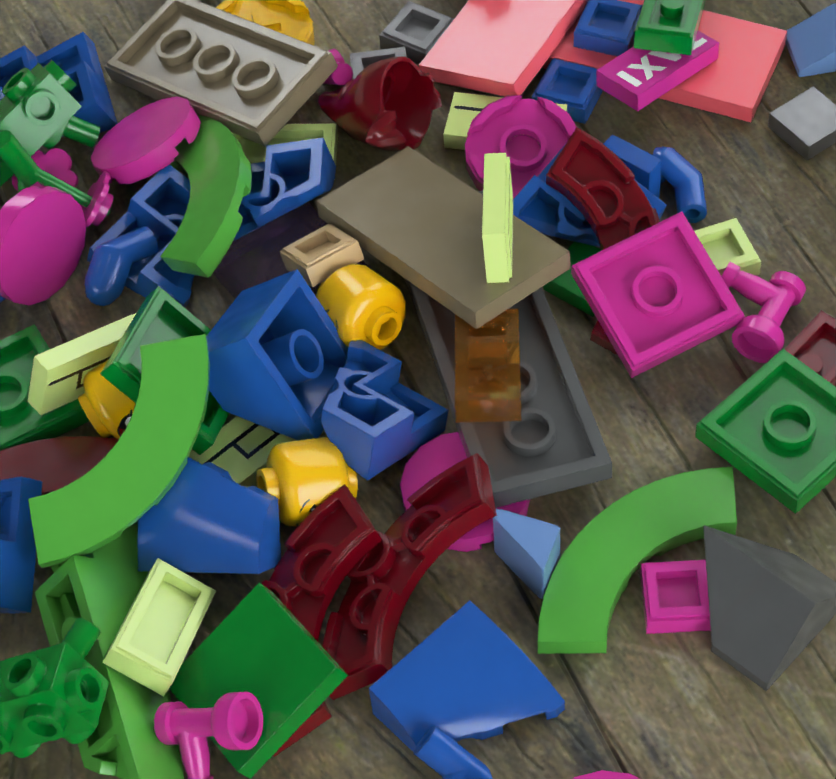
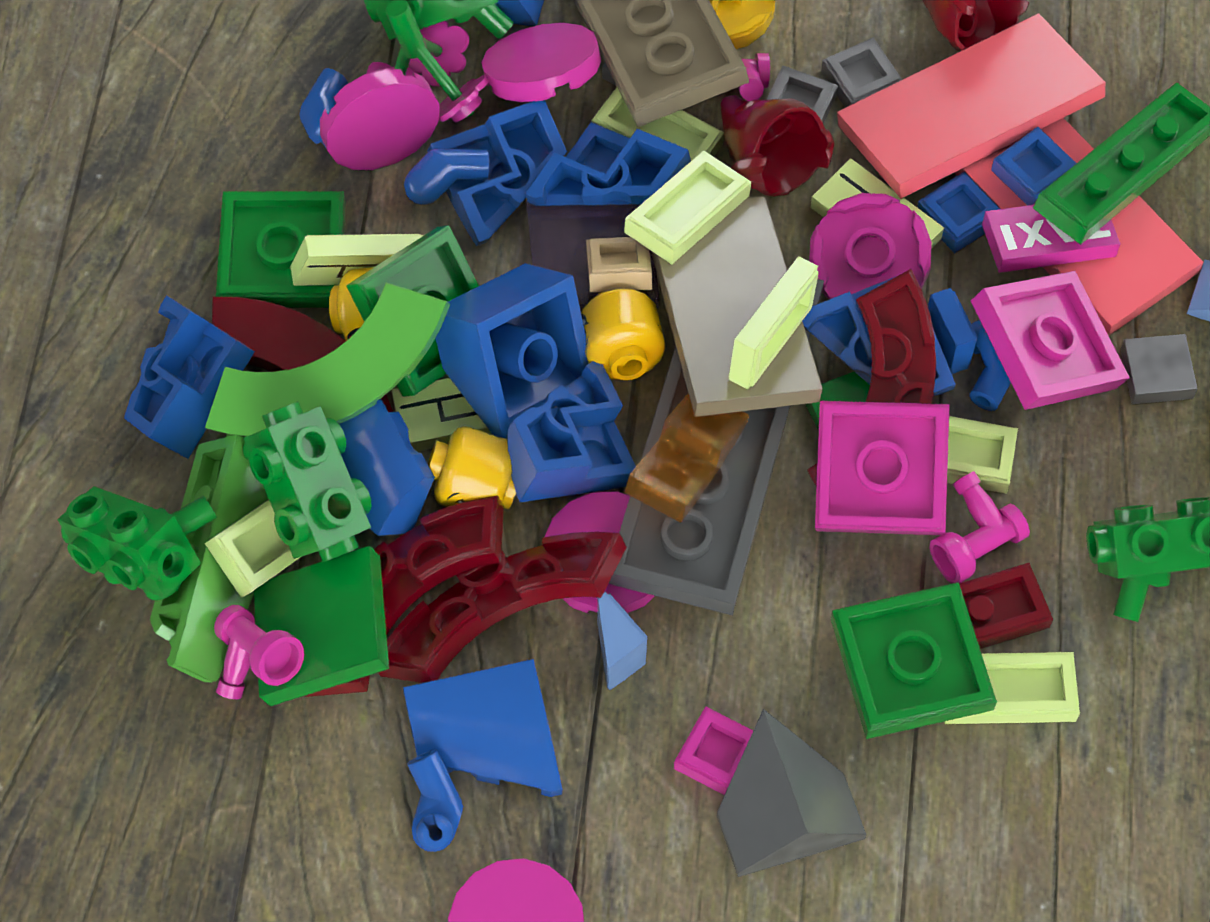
camera: 25 degrees right, 10 degrees up
(168, 554) = (308, 482): none -> green brick
(218, 182) = (569, 146): bright green tile -> none
(352, 180) = (687, 207): none -> yellowish green tile
(614, 545) = (704, 674): bright green tile -> none
(715, 137) = (1049, 339): none -> dark pink plate

